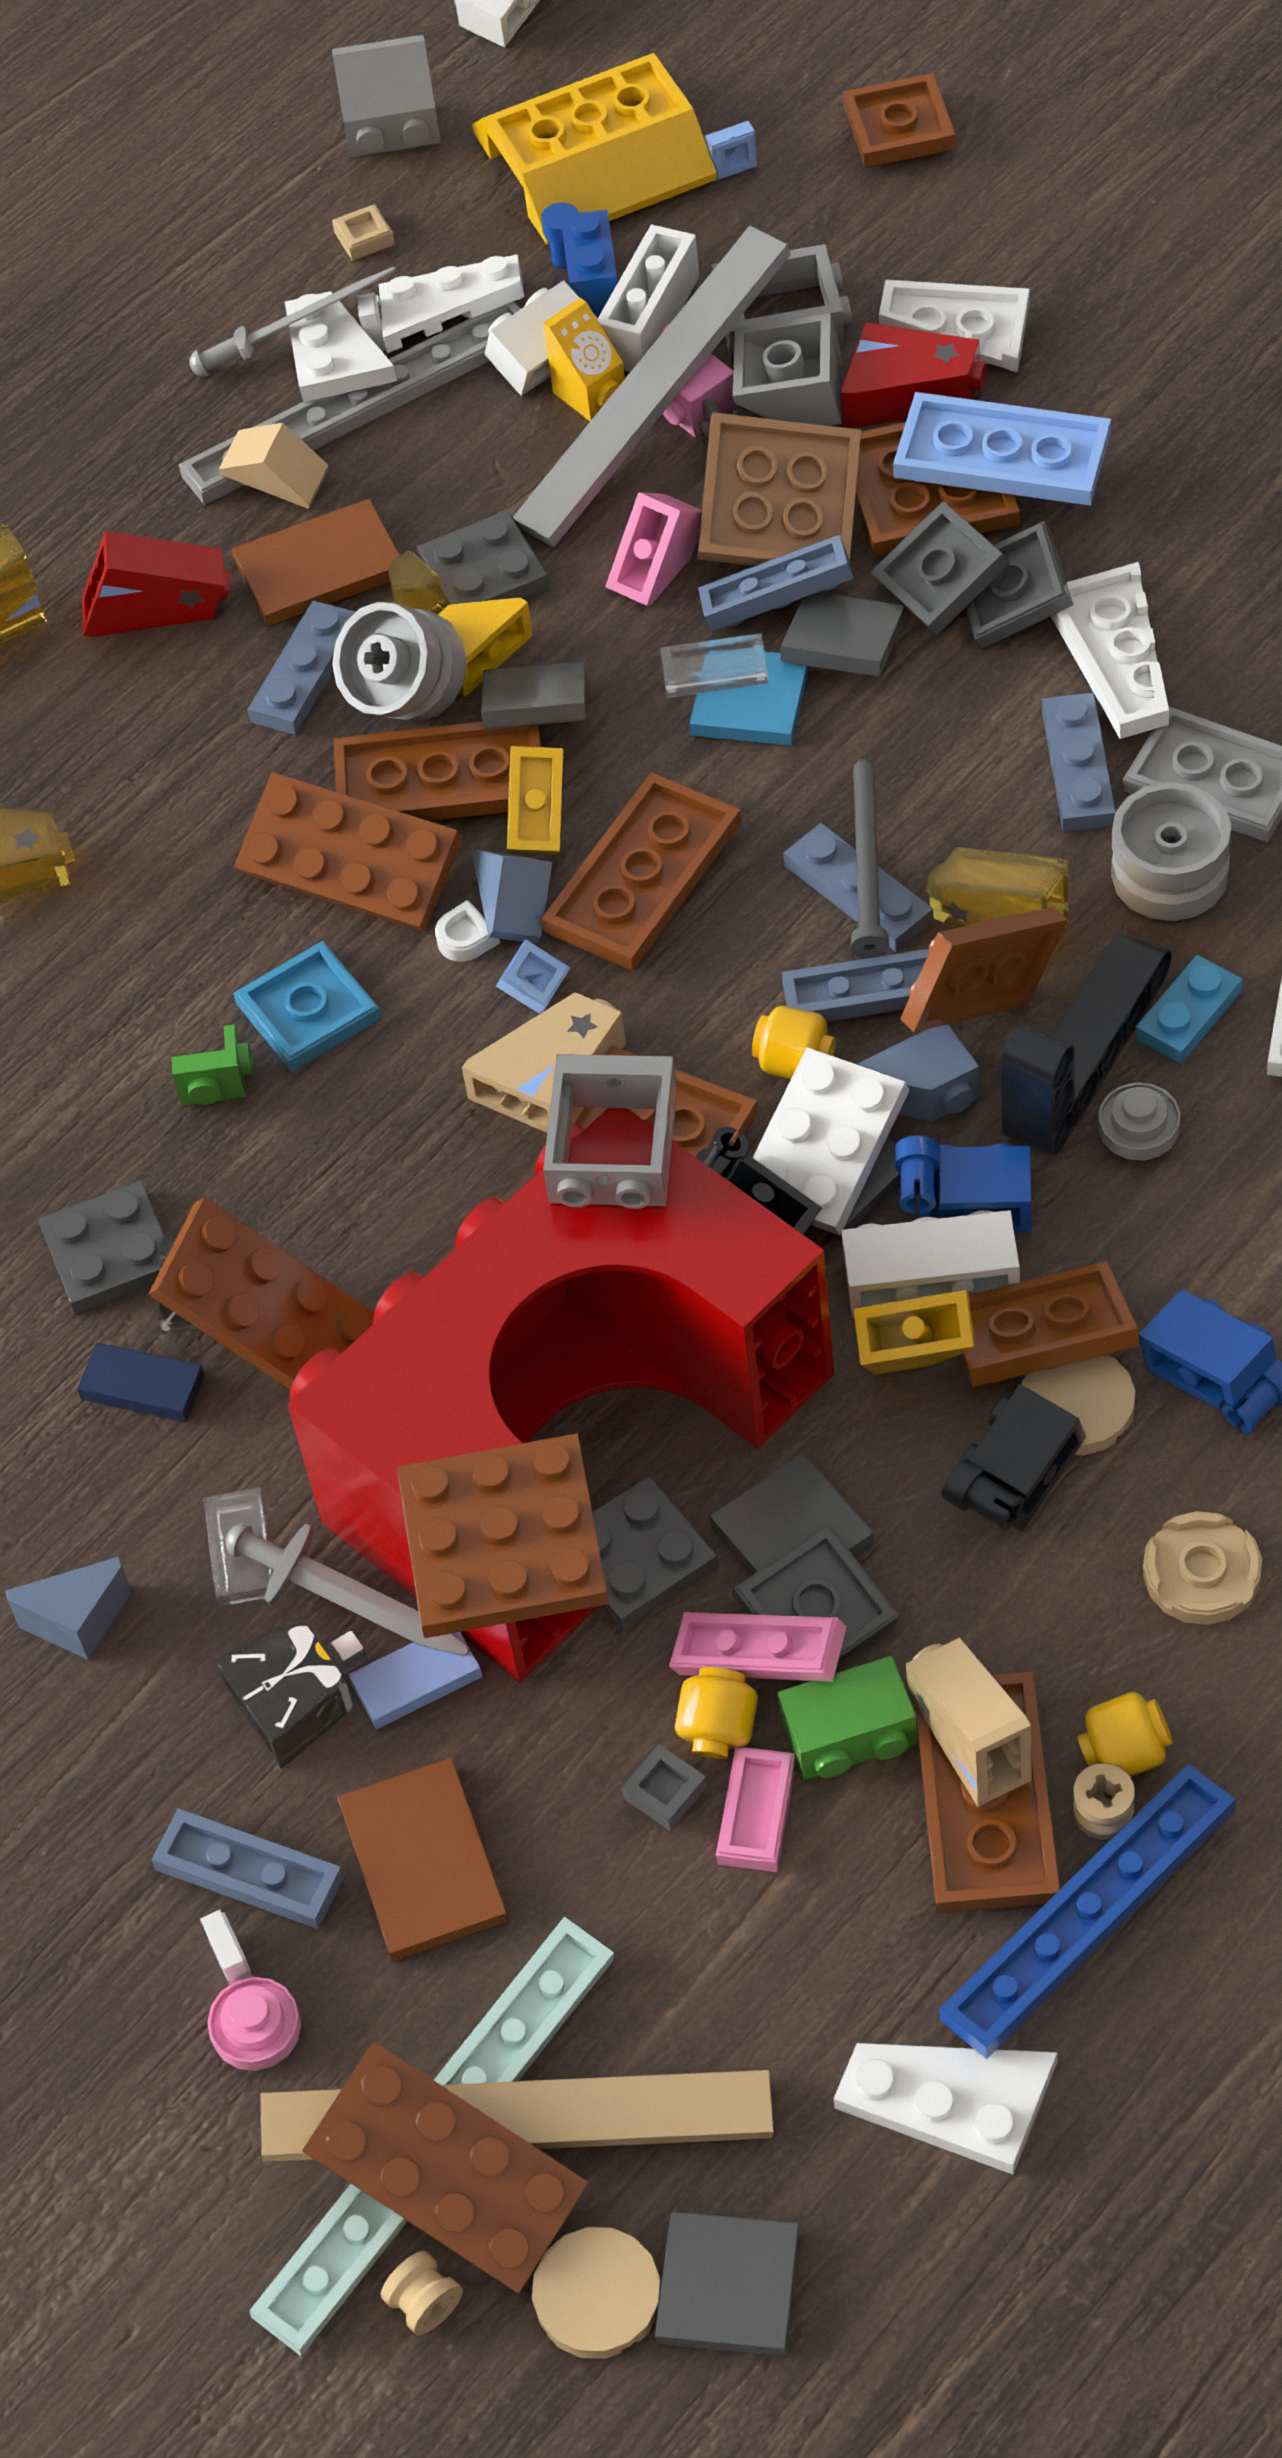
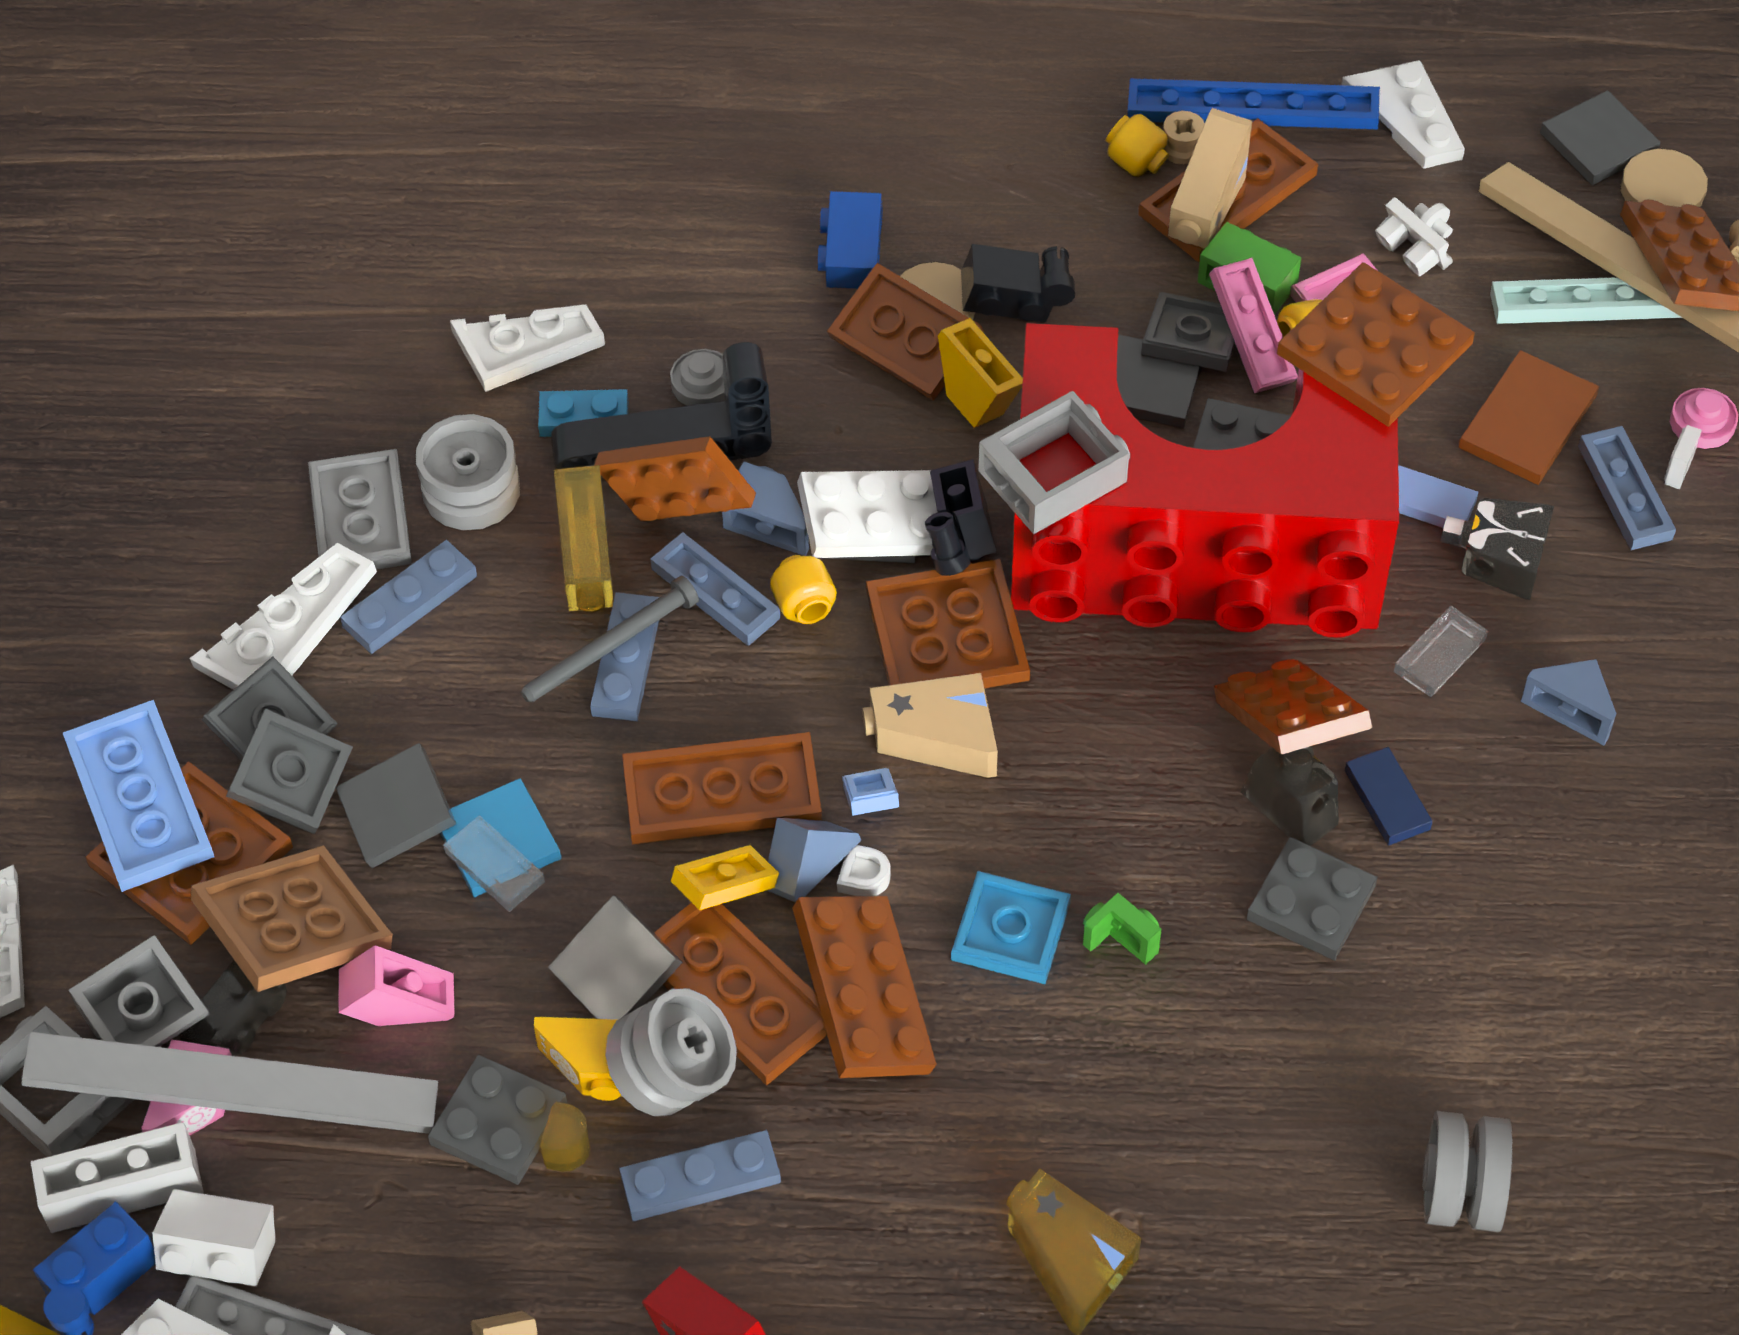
camera: 135 degrees left, 0 degrees up
(294, 1566) = (1429, 592): light grey sword -> none
(316, 561) = (582, 1250): dark orange tile -> none
(581, 359) = (231, 1167): yellow slope -> none
(747, 1933) = (1428, 246): none -> white hips
(775, 583) = (382, 871): sand blue plate -> none
(901, 361) = (74, 929): red slope -> none
(929, 1257) = (906, 415): white brick -> none
(964, 1179) = (832, 427): blue hinge -> none
(1202, 1568) = (992, 185): tan tile -> none

